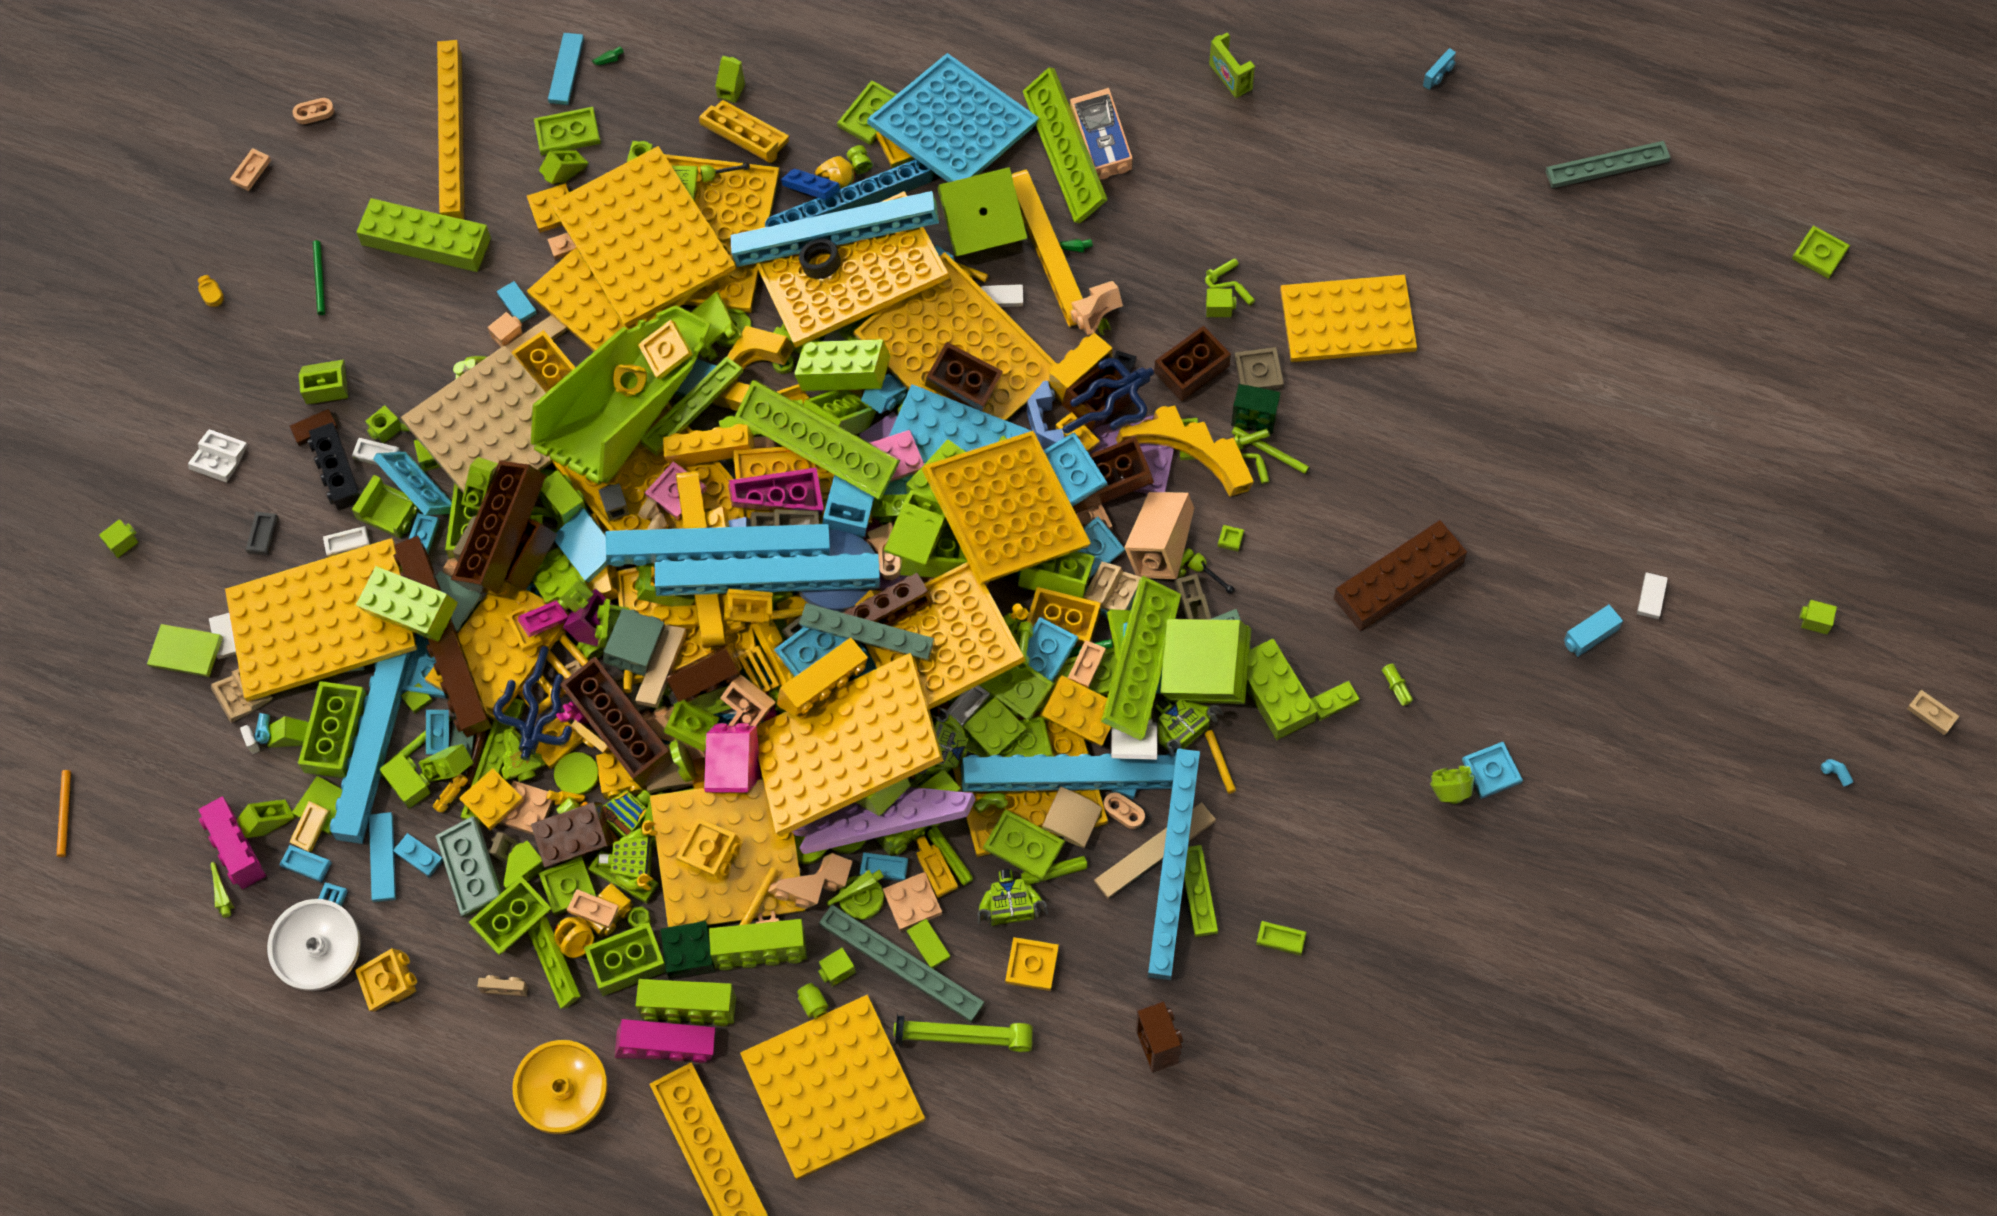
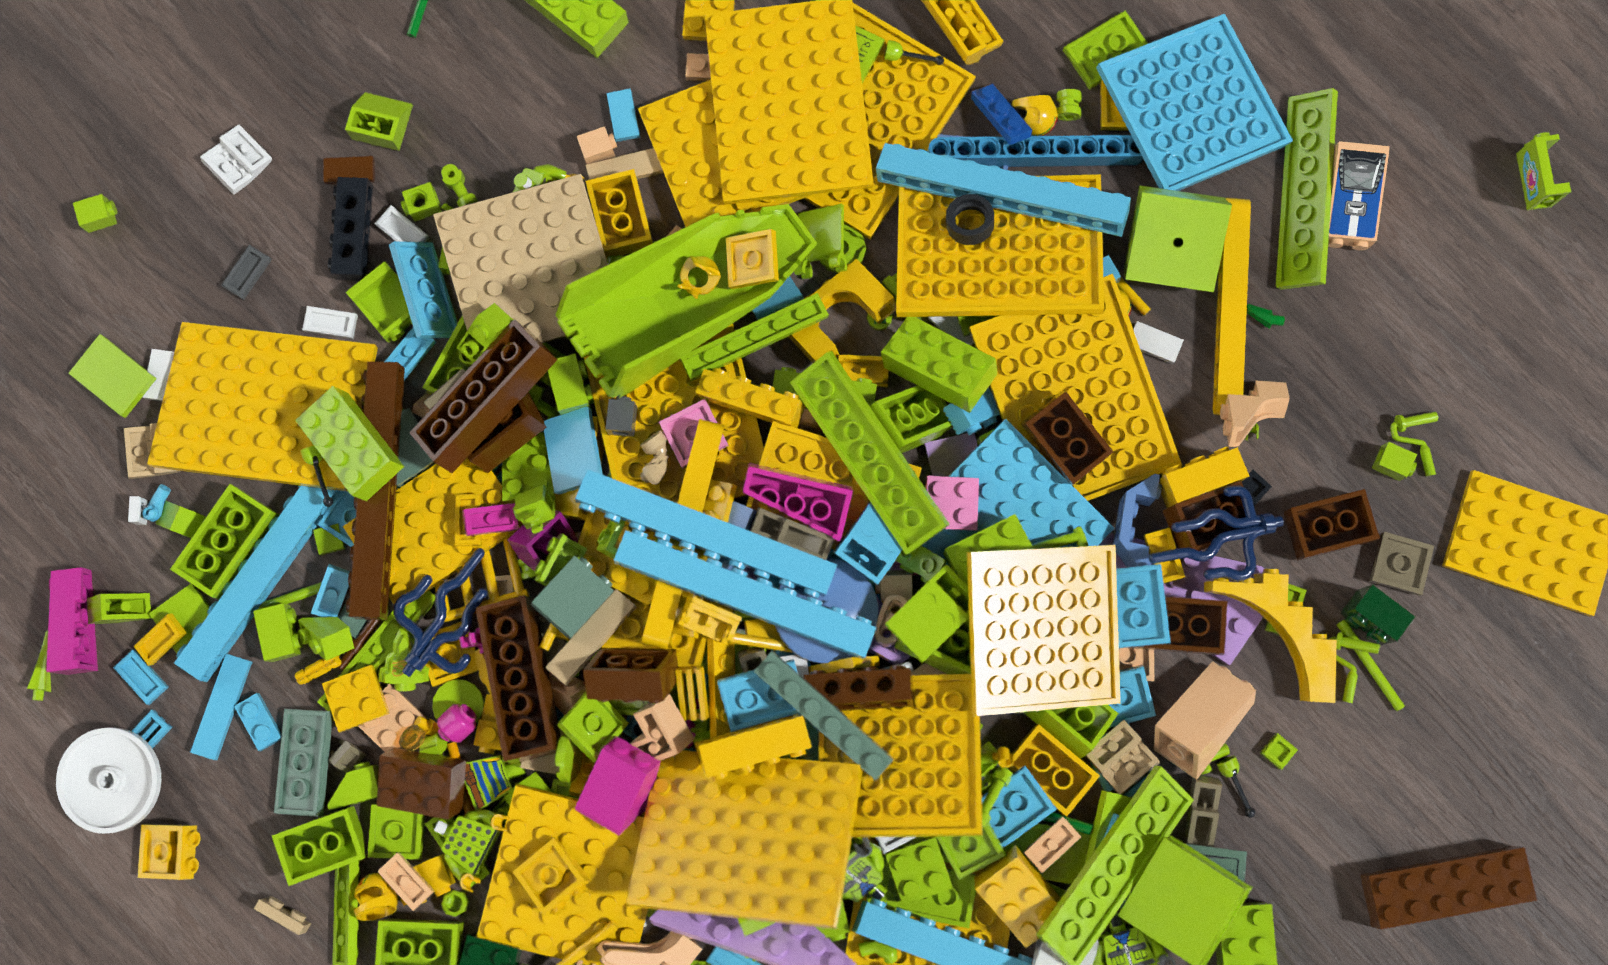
camera: 25 degrees right, 15 degrees up
(380, 629) = (313, 457): none -> hinge
(402, 399) = (455, 180): none -> lime leg
(550, 807) = (412, 738): none -> clear yellow tile
(581, 781) = (456, 723): none -> dark pink head

